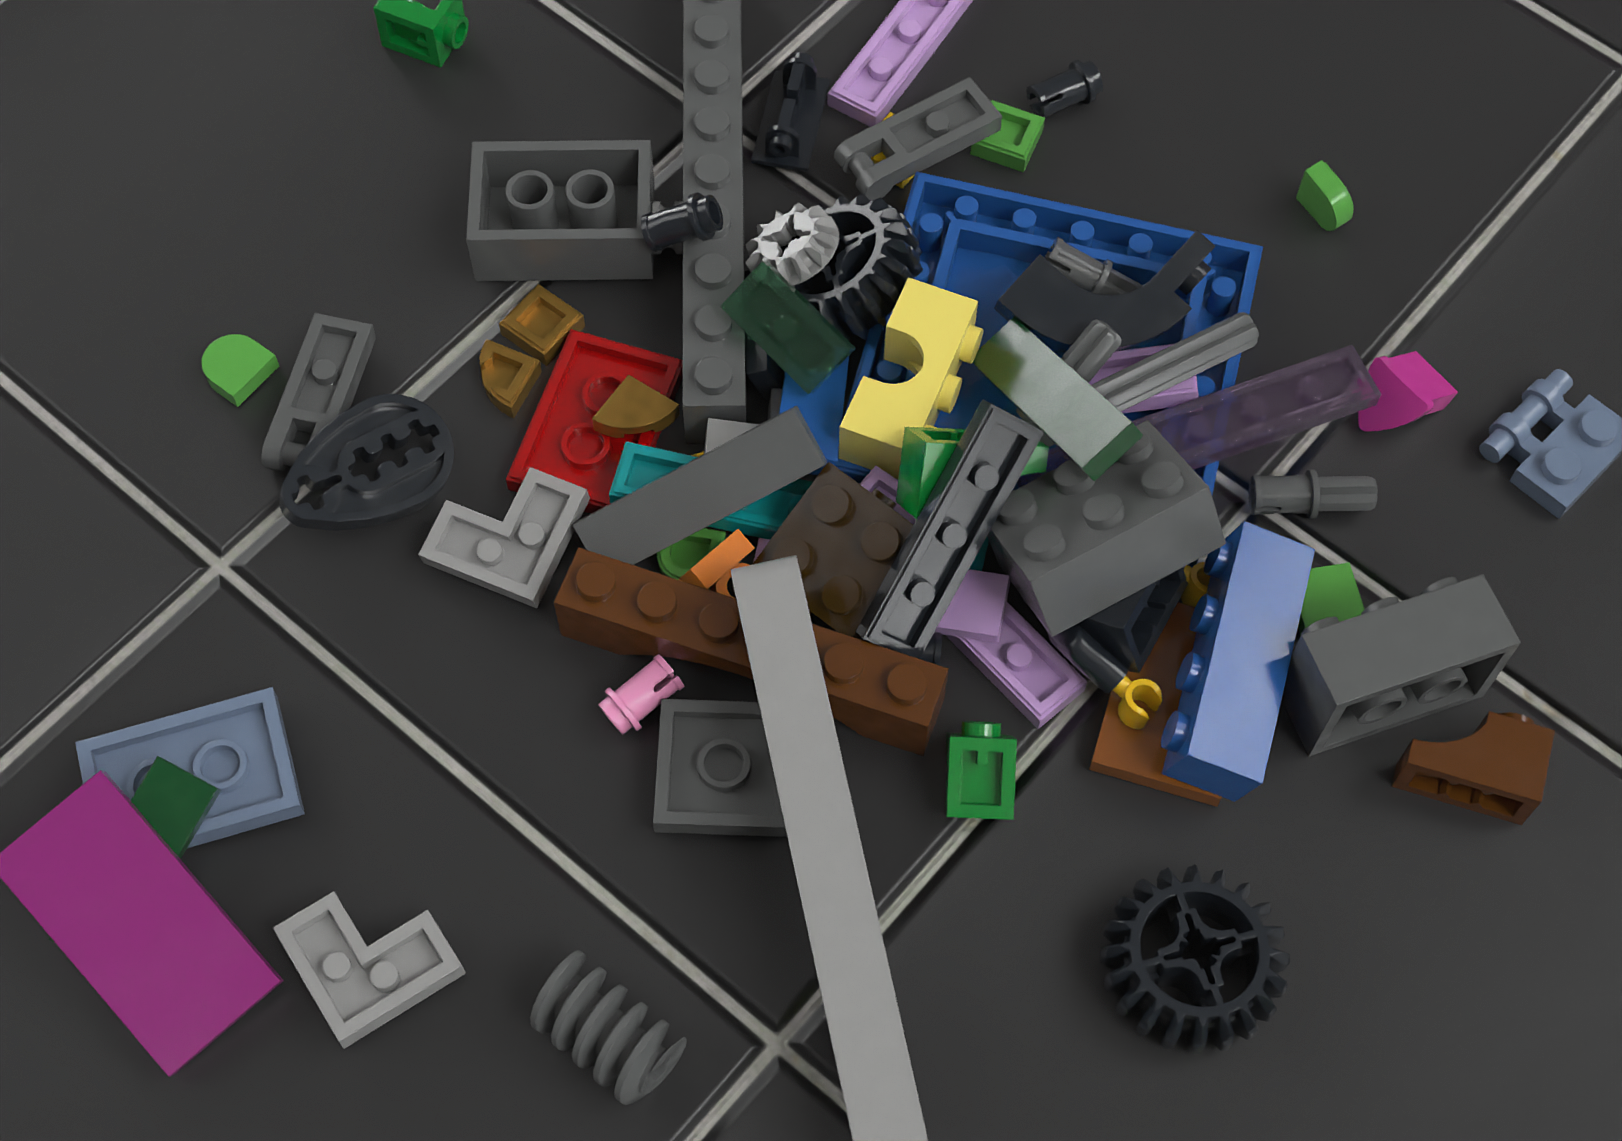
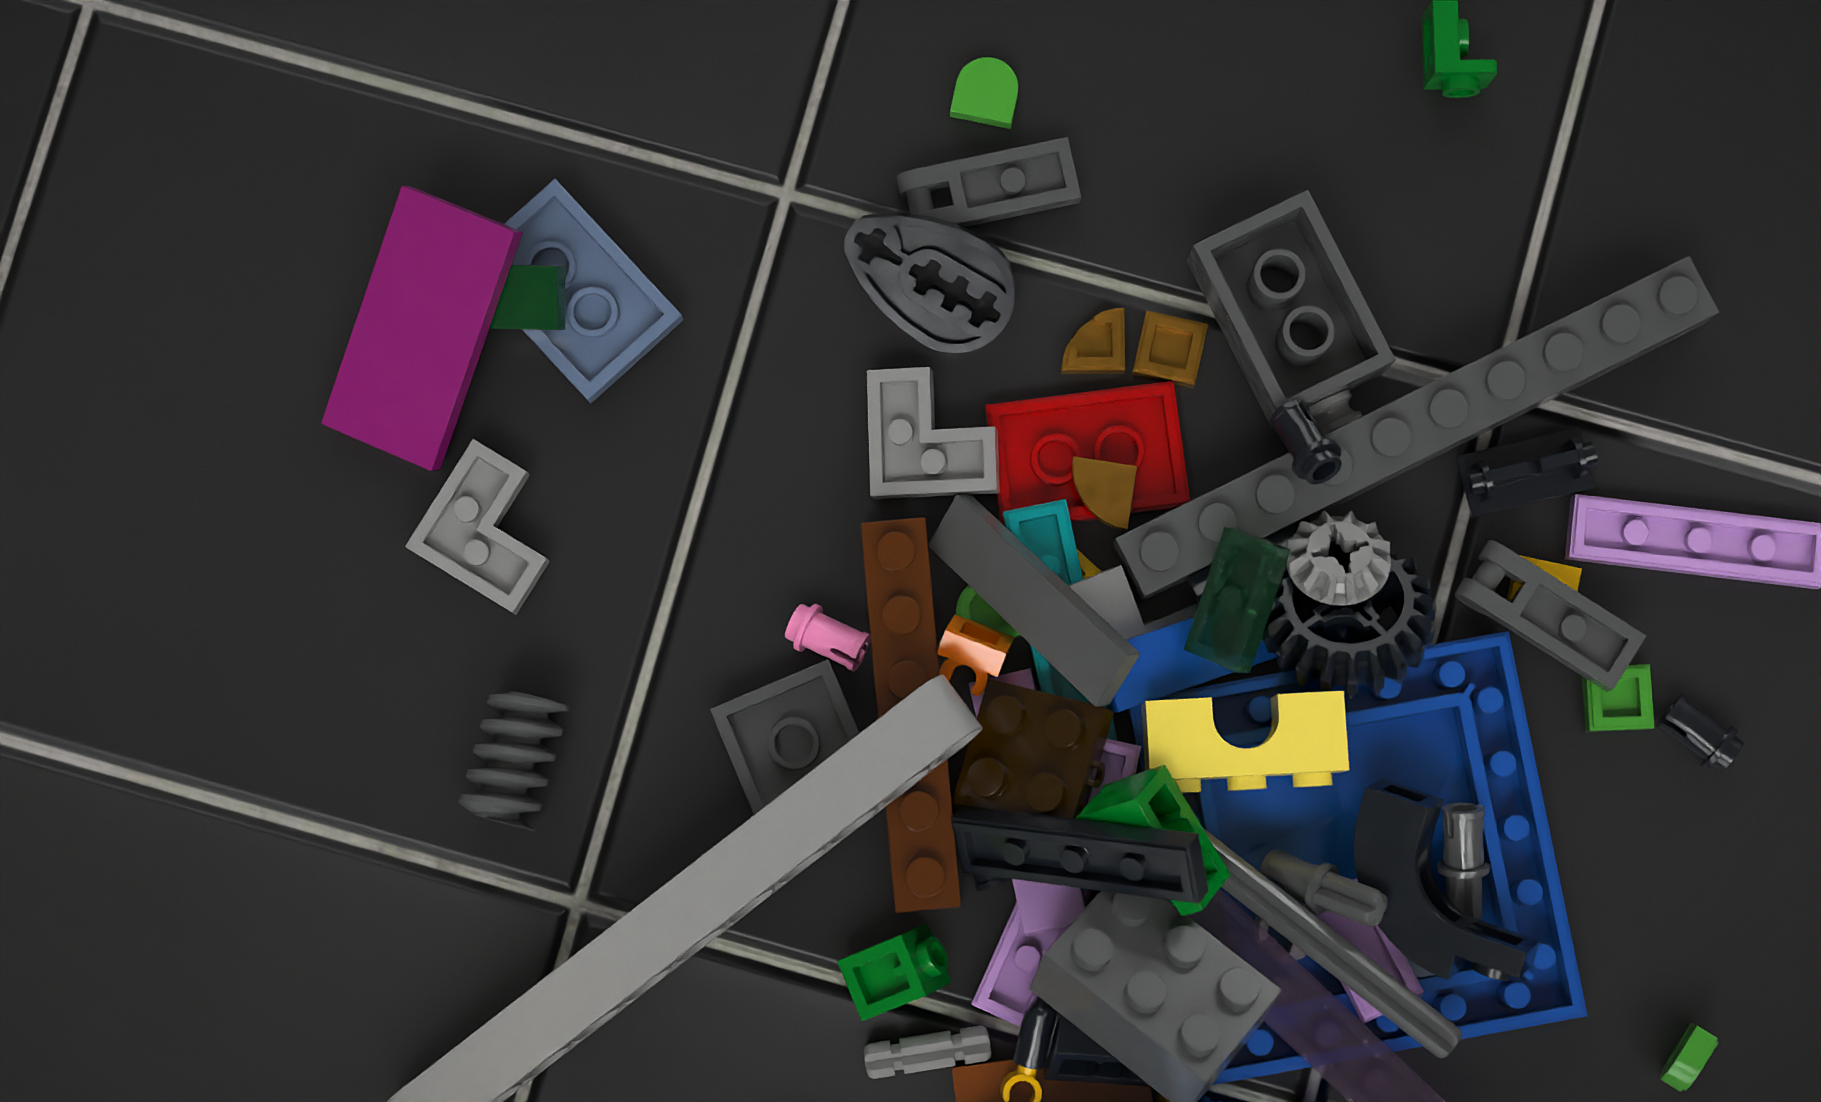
camera: 70 degrees right, 20 degrees up
(1056, 399) = (1267, 891): tile -> none
(1067, 779) = (927, 1052): none -> light grey axle

